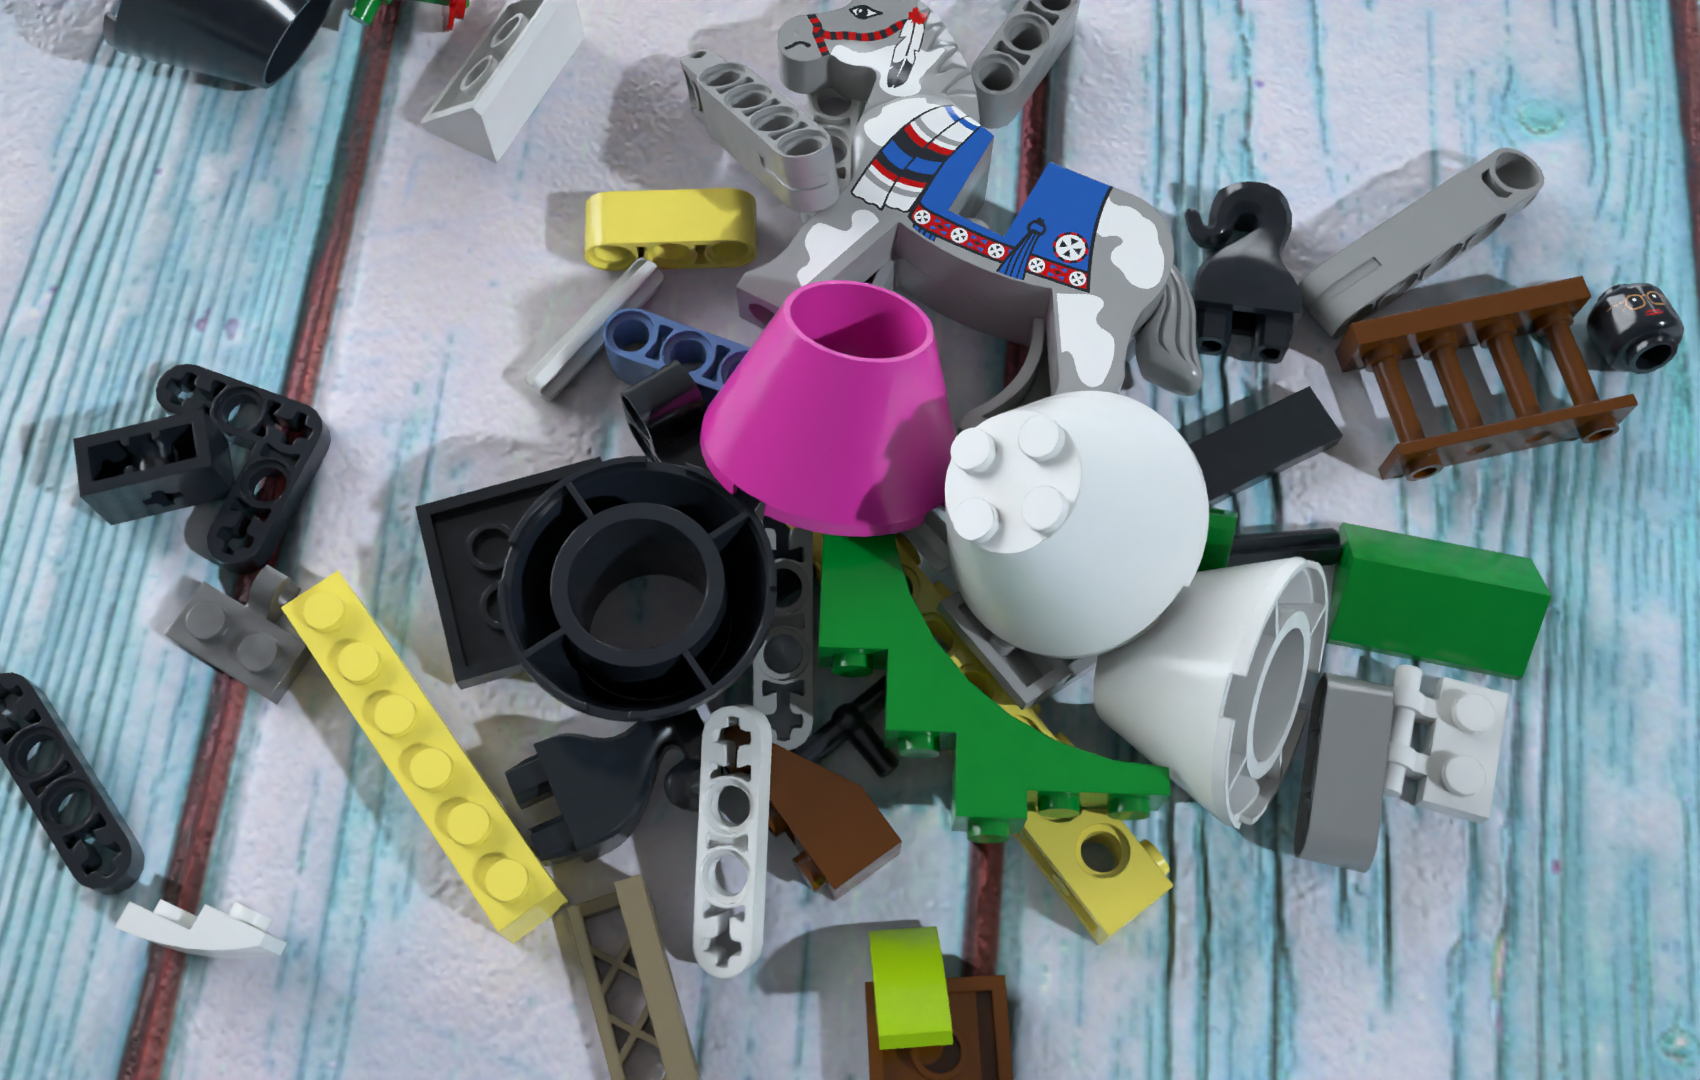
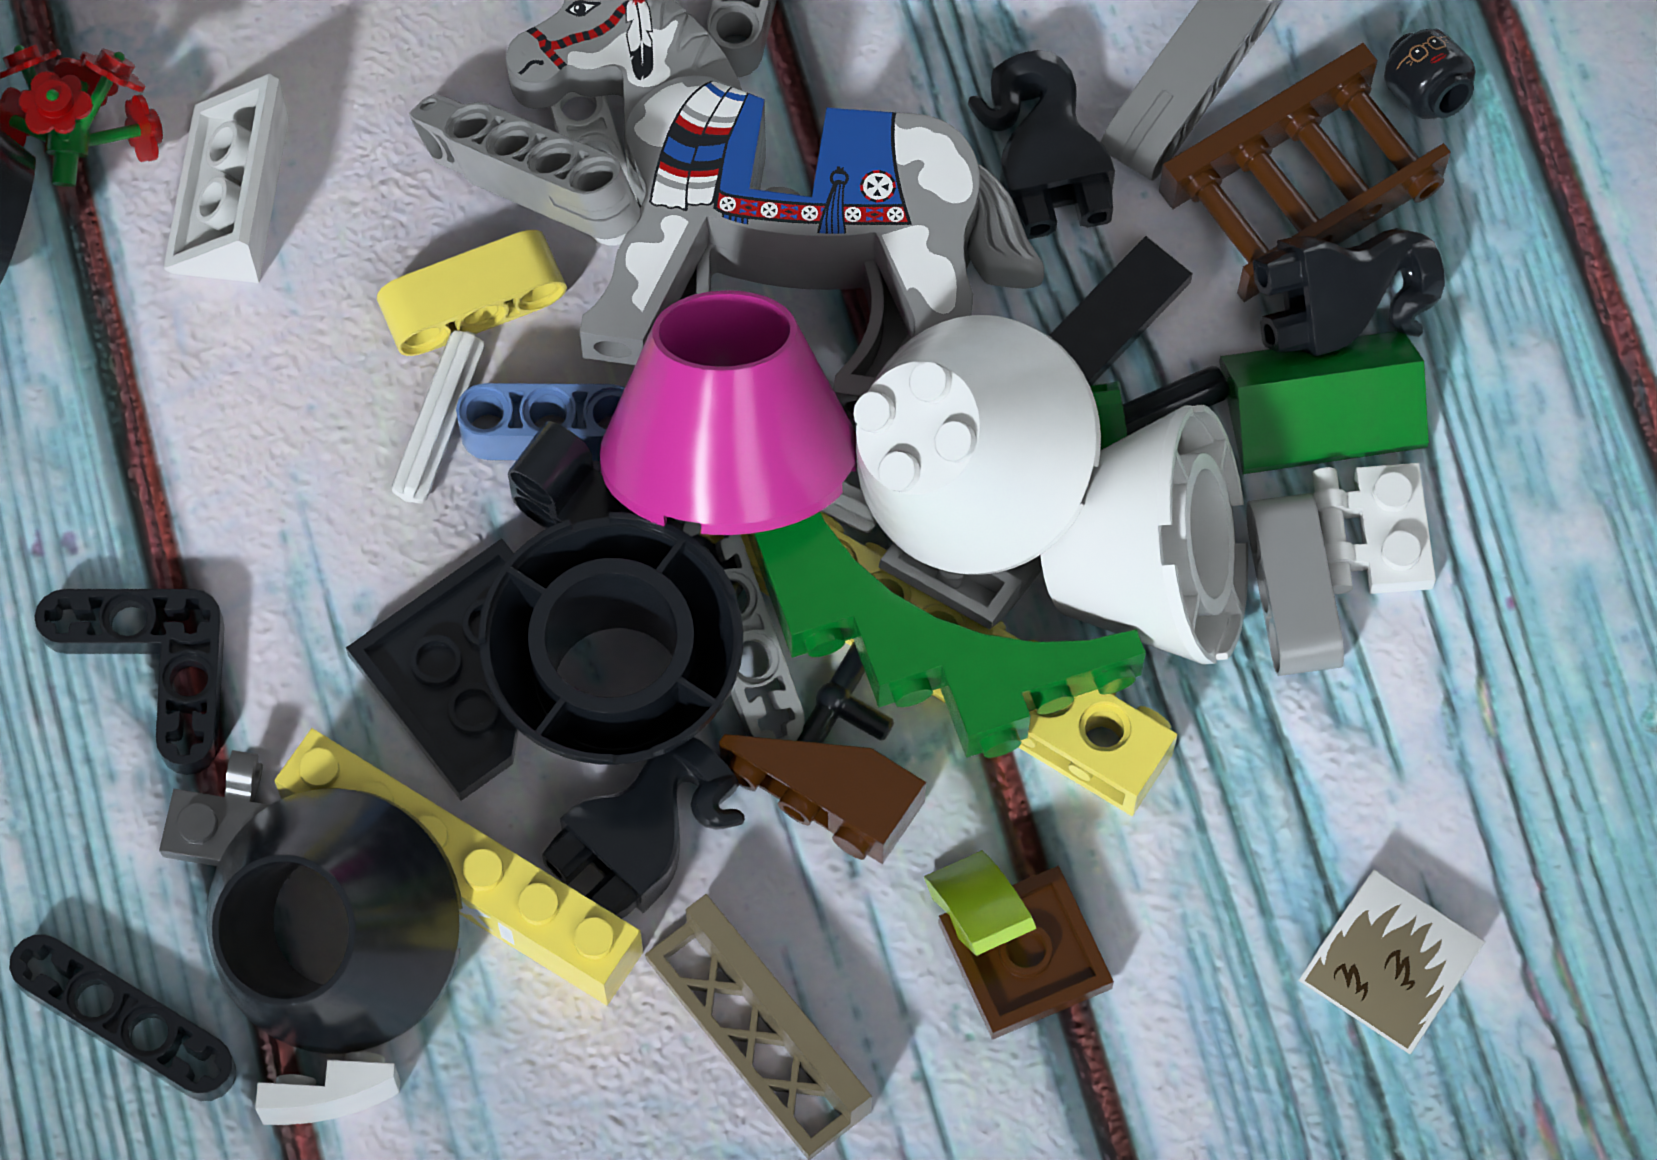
camera: 20 degrees left, 0 degrees up
(154, 467) = (82, 697): black brick -> none
(310, 769) = (398, 910): none -> black cone
(721, 838) = (784, 833): white beam -> none
(1481, 498) = (1336, 289): none -> black hips

